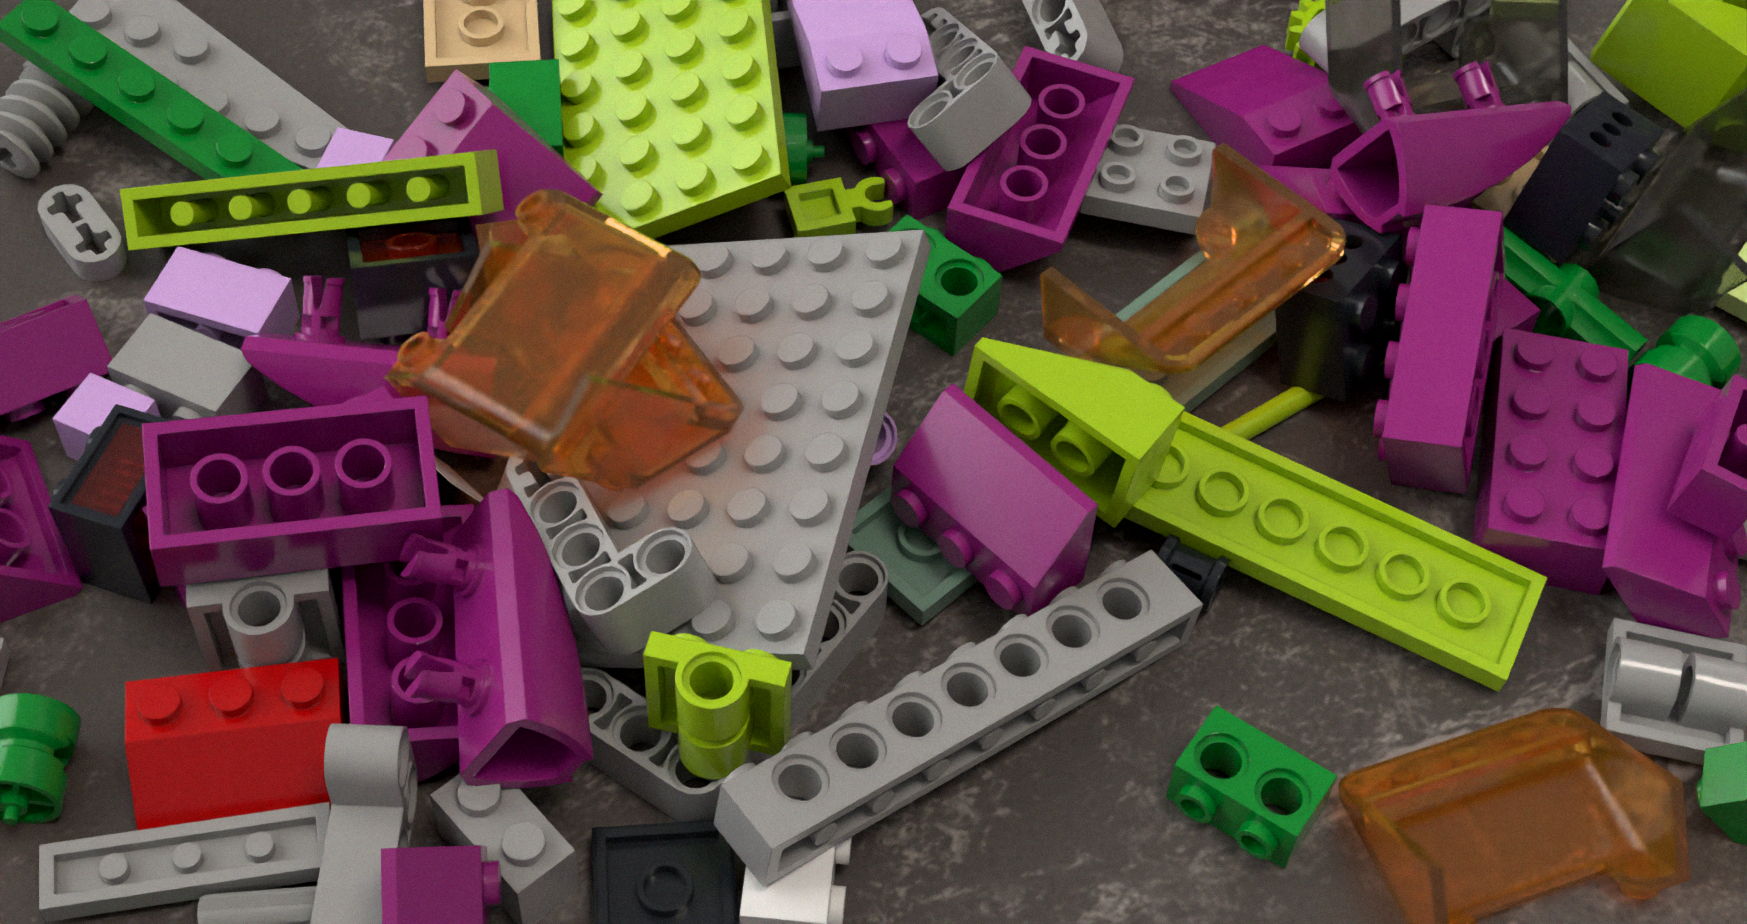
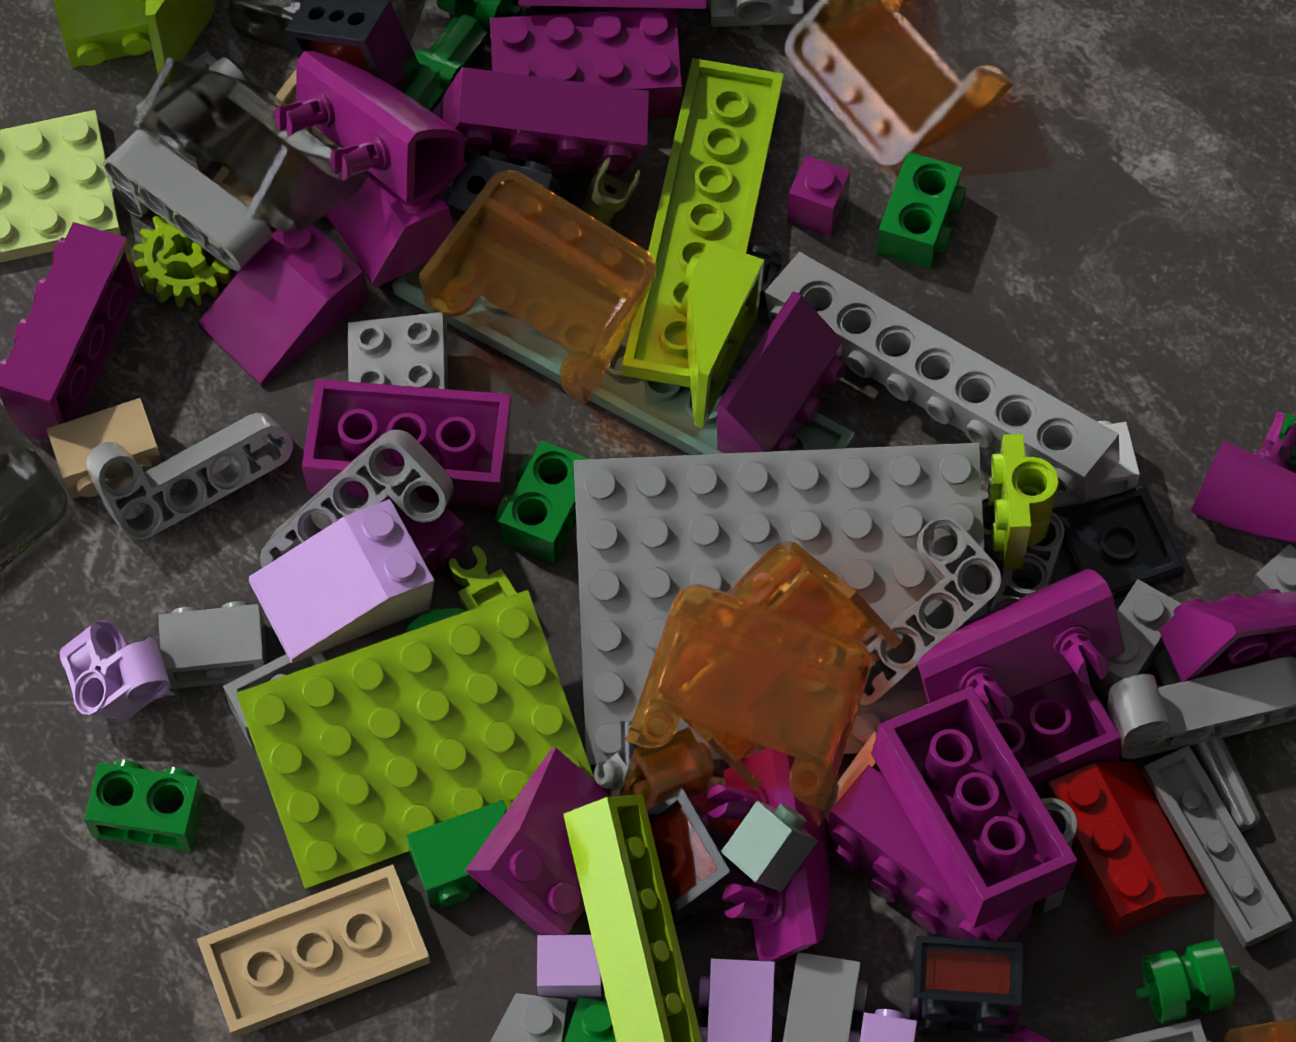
camera: 100 degrees left, 10 degrees up
(364, 314) = (770, 844): none -> brick
(1296, 666) = (818, 196): none -> magenta brick
(1333, 419) = (607, 194): none -> olive piece

